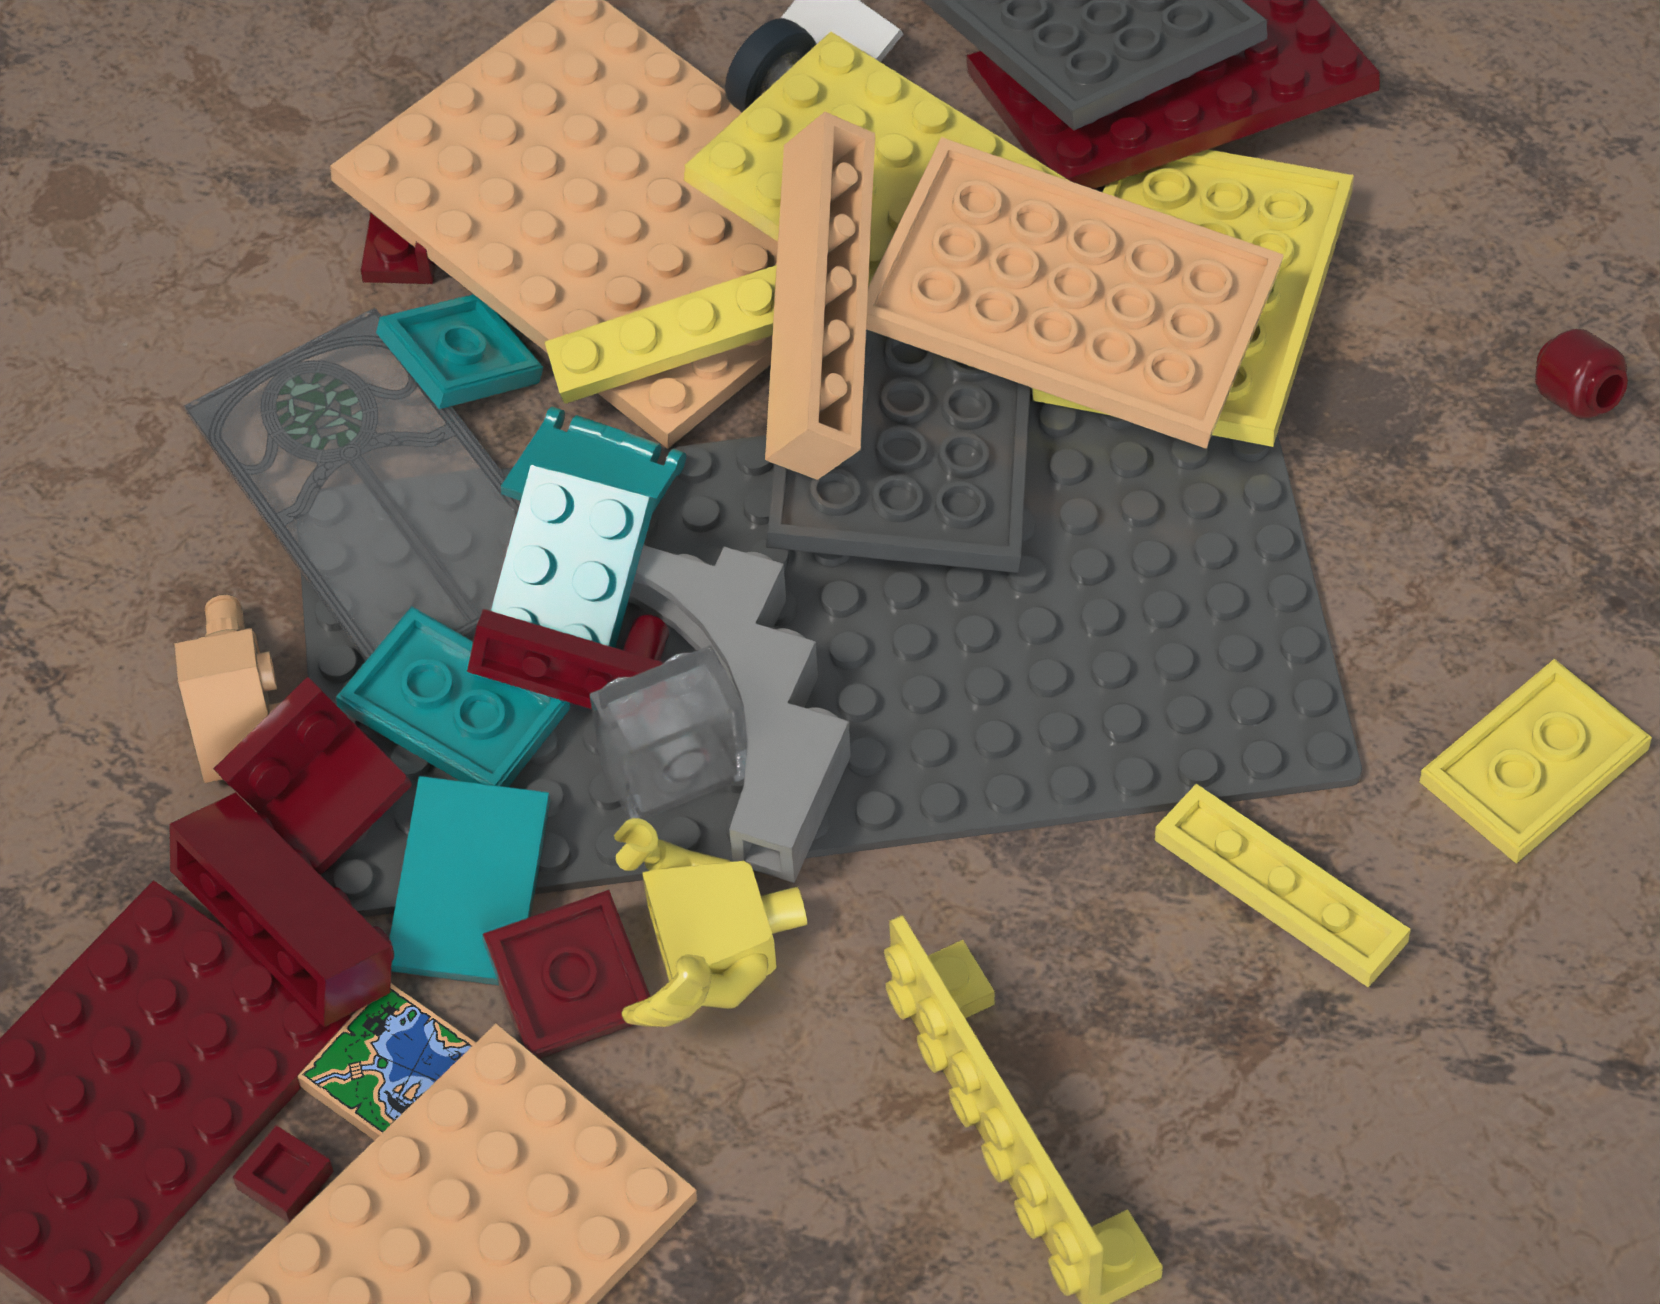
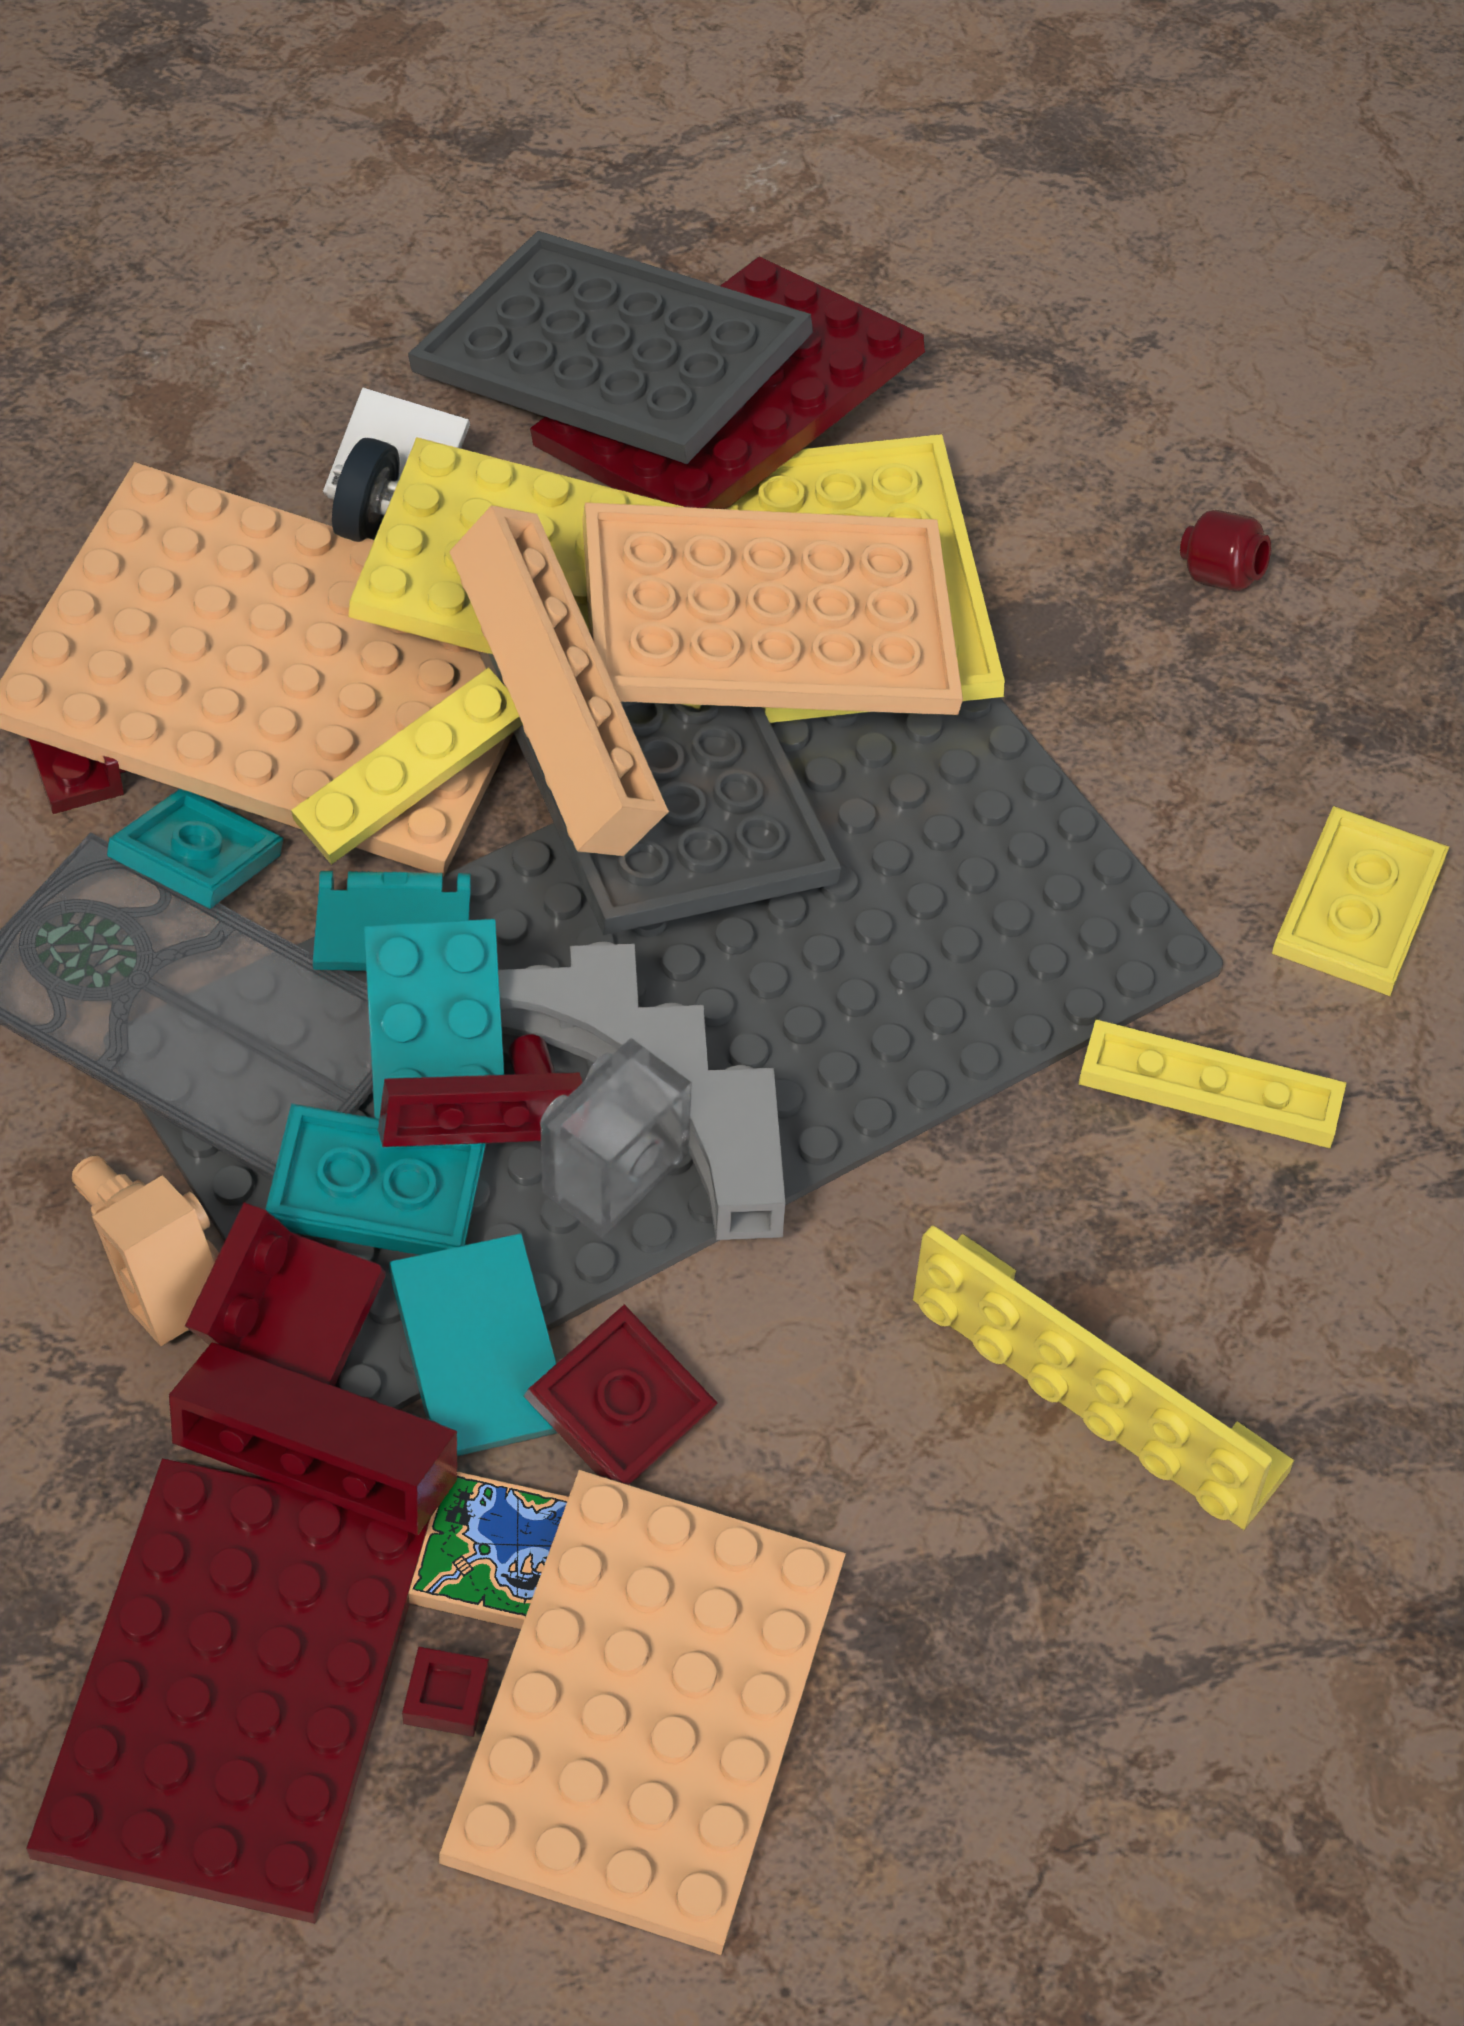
camera: 30 degrees left, 0 degrees up
(707, 925) = (726, 1307): light yellow torso -> none

